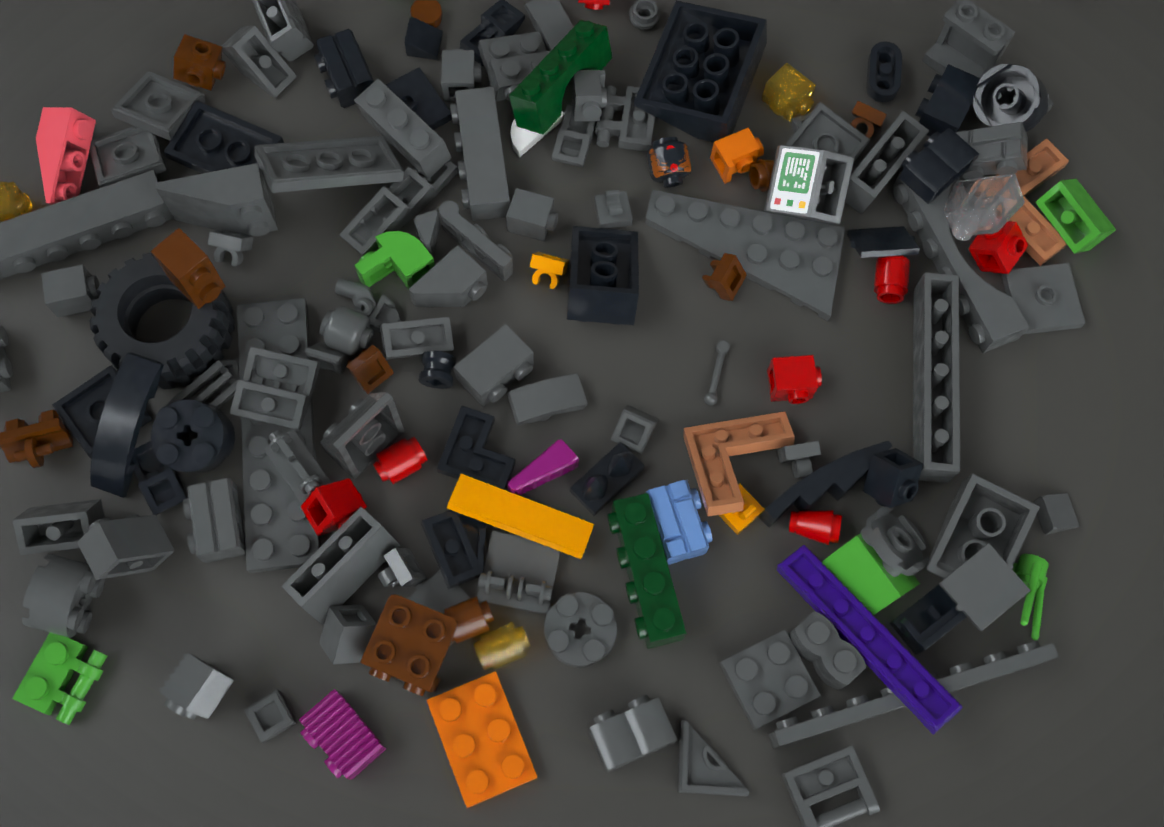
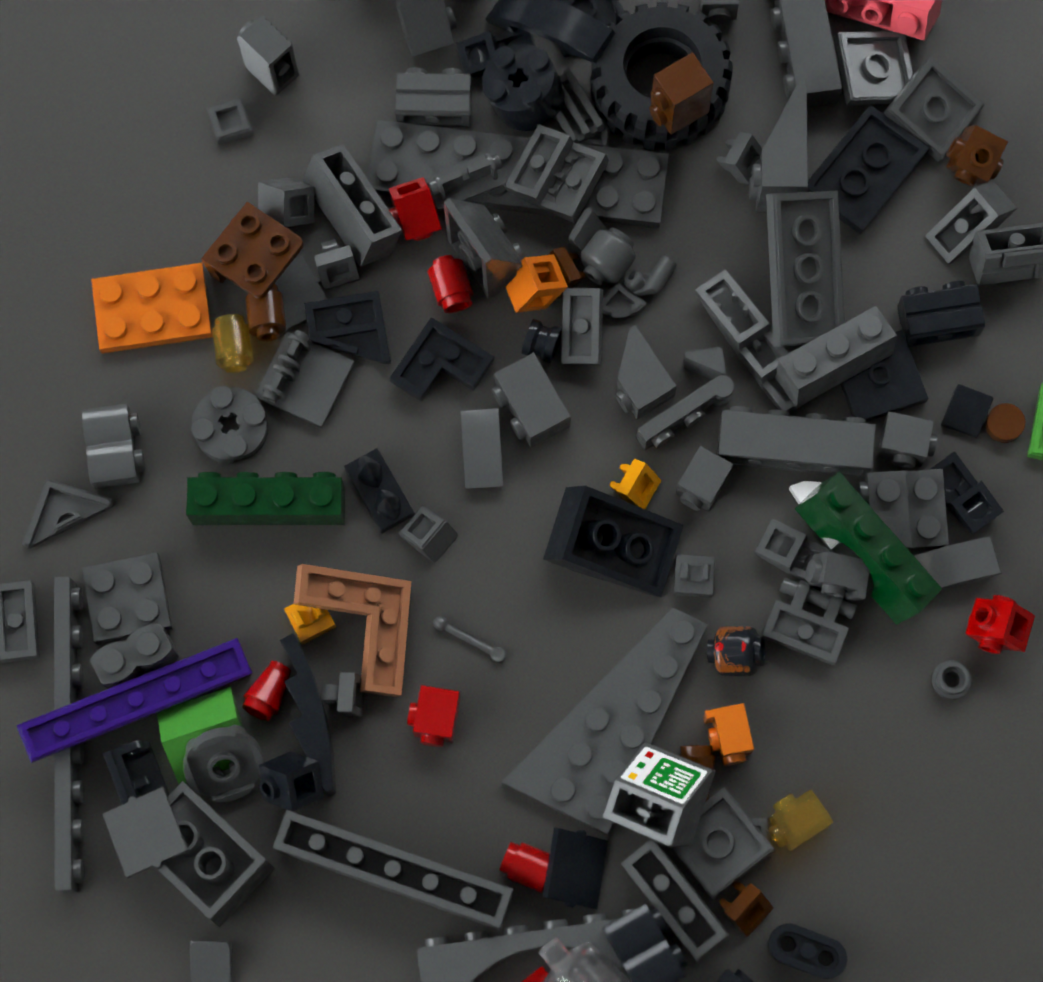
camera: 110 degrees right, 5 degrees up
(341, 735) = (190, 178): magenta brick -> none
(385, 376) = (536, 284): none -> orange brick
(397, 253) = (684, 329): bright green brick -> none
(520, 516) = (358, 389): light orange tile -> none
(546, 467) = (407, 435): magenta slope -> none
(679, 521) = (310, 543): medium blue brick -> none
(703, 69) = (848, 720): black slope -> none
(727, 276) = (575, 676): reddish brown tile -> none
(1032, 572) = (152, 902): bright green plant -> none

